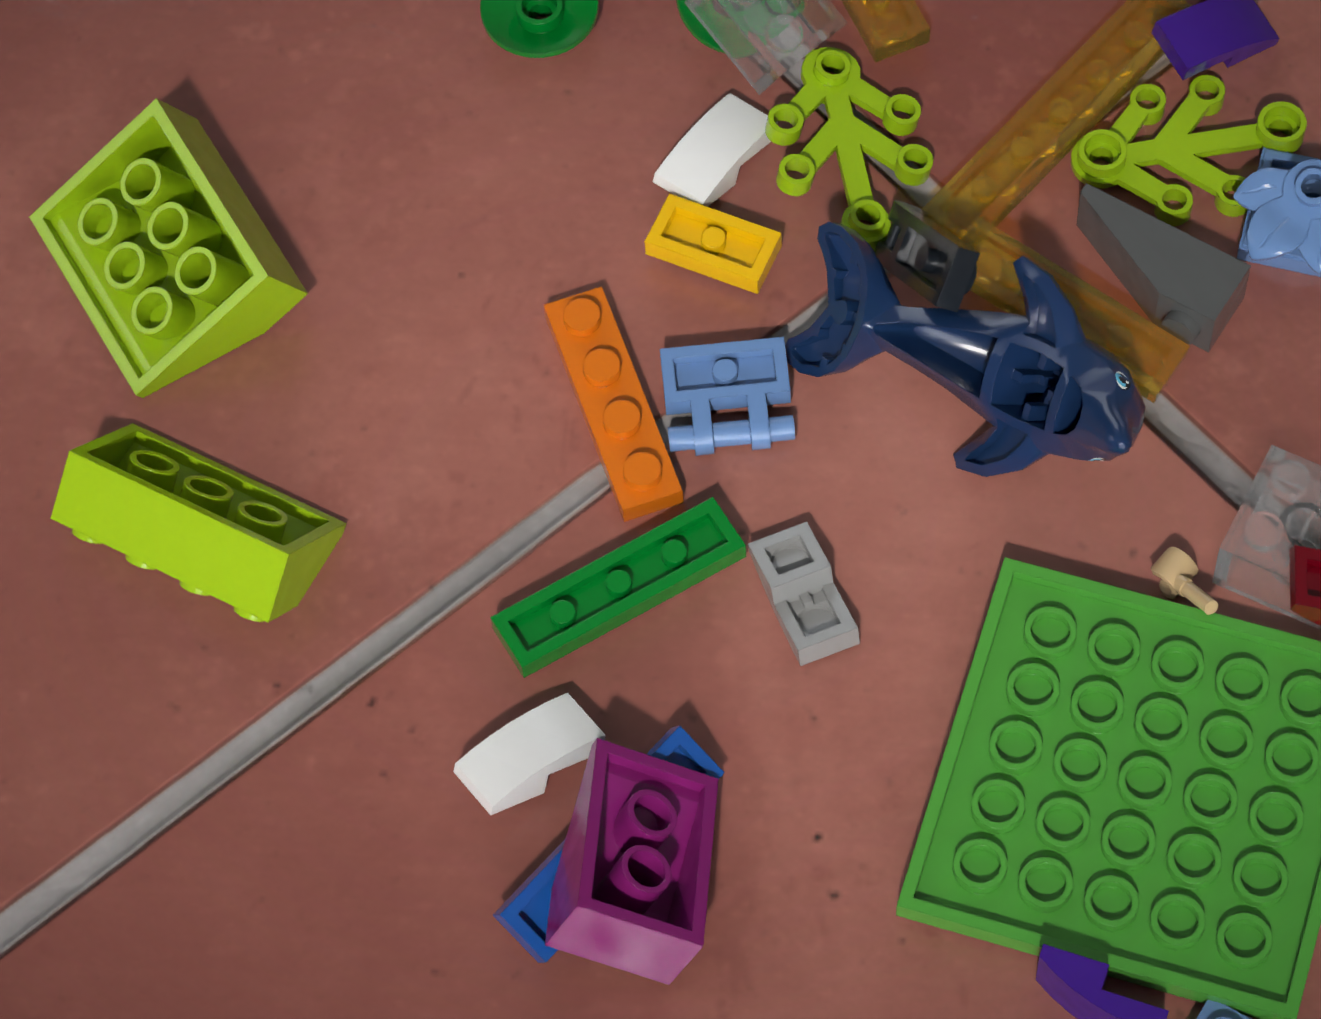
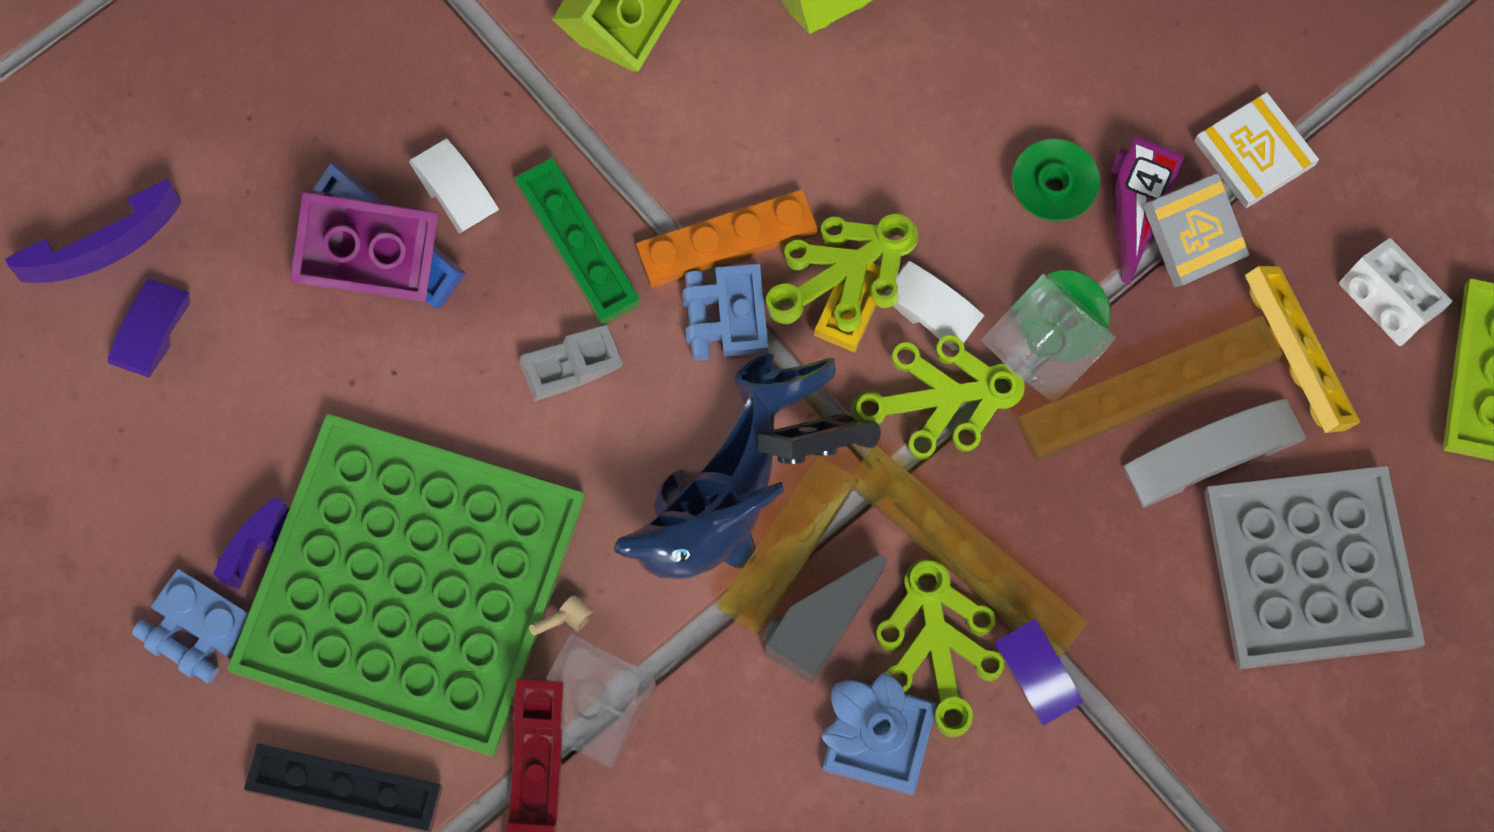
camera: 85 degrees right, 10 degrees up
(665, 237) = (847, 266): none -> lime plant

